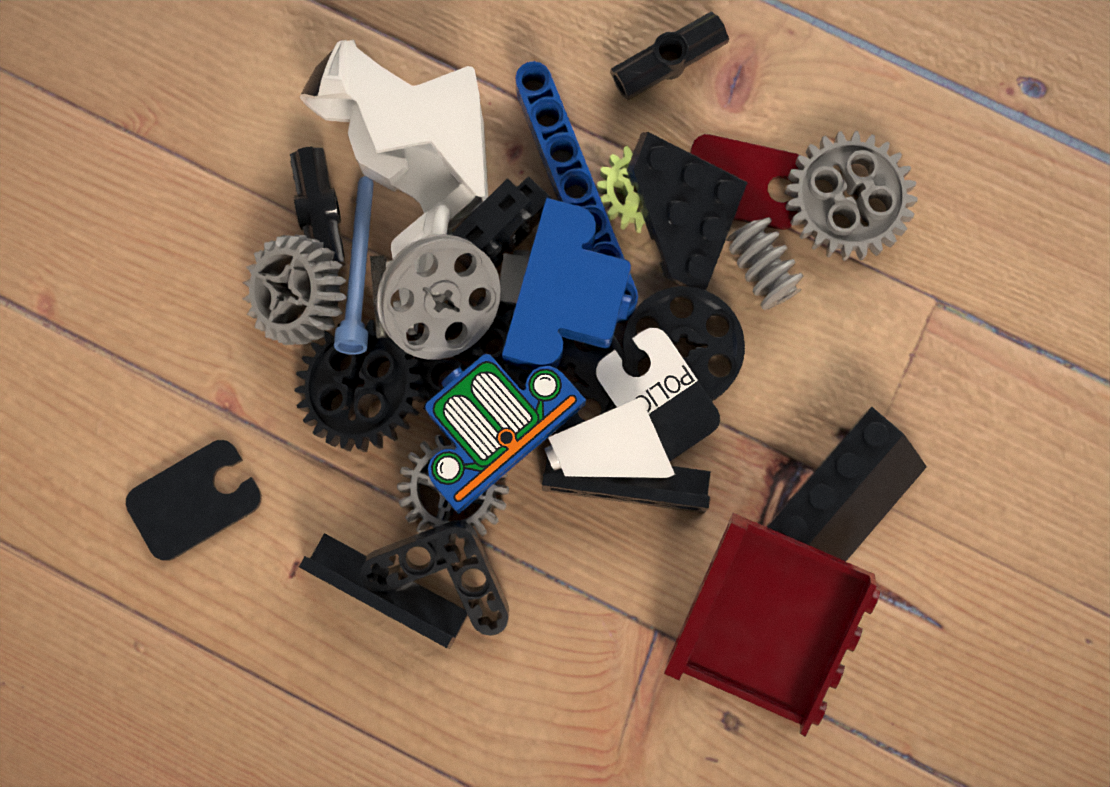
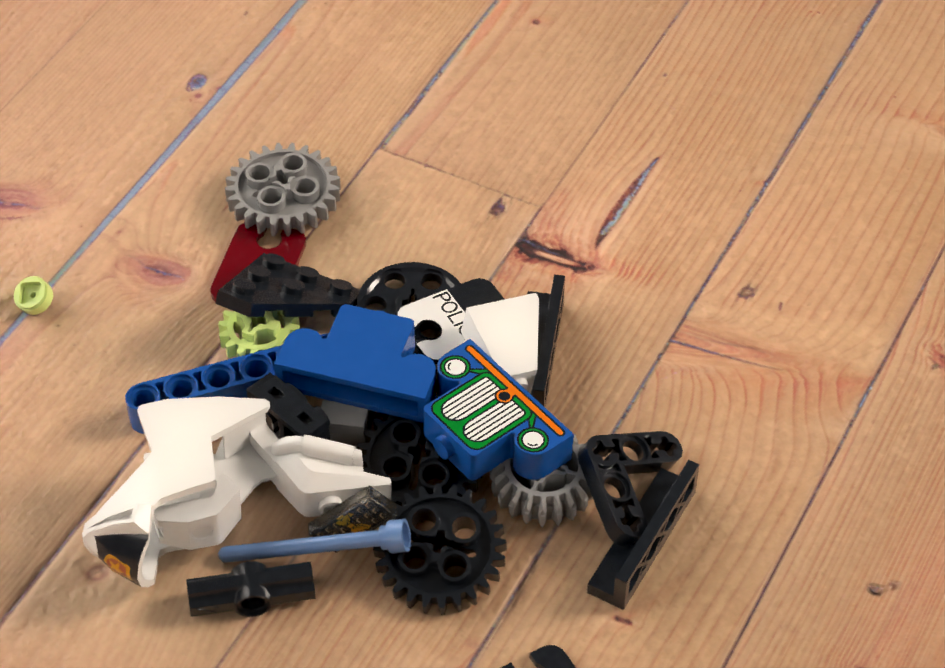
camera: 90 degrees left, 30 degrees down
(285, 290) = (324, 582): light grey gear -> none
(444, 280) = (365, 444): light grey wedge -> none
(689, 43) = (132, 307): black piece -> none
(764, 263) = (339, 241): light grey piece -> none
(773, 622) = (664, 240): dark red panel -> none
(851, 488) = (548, 208): black slope -> none

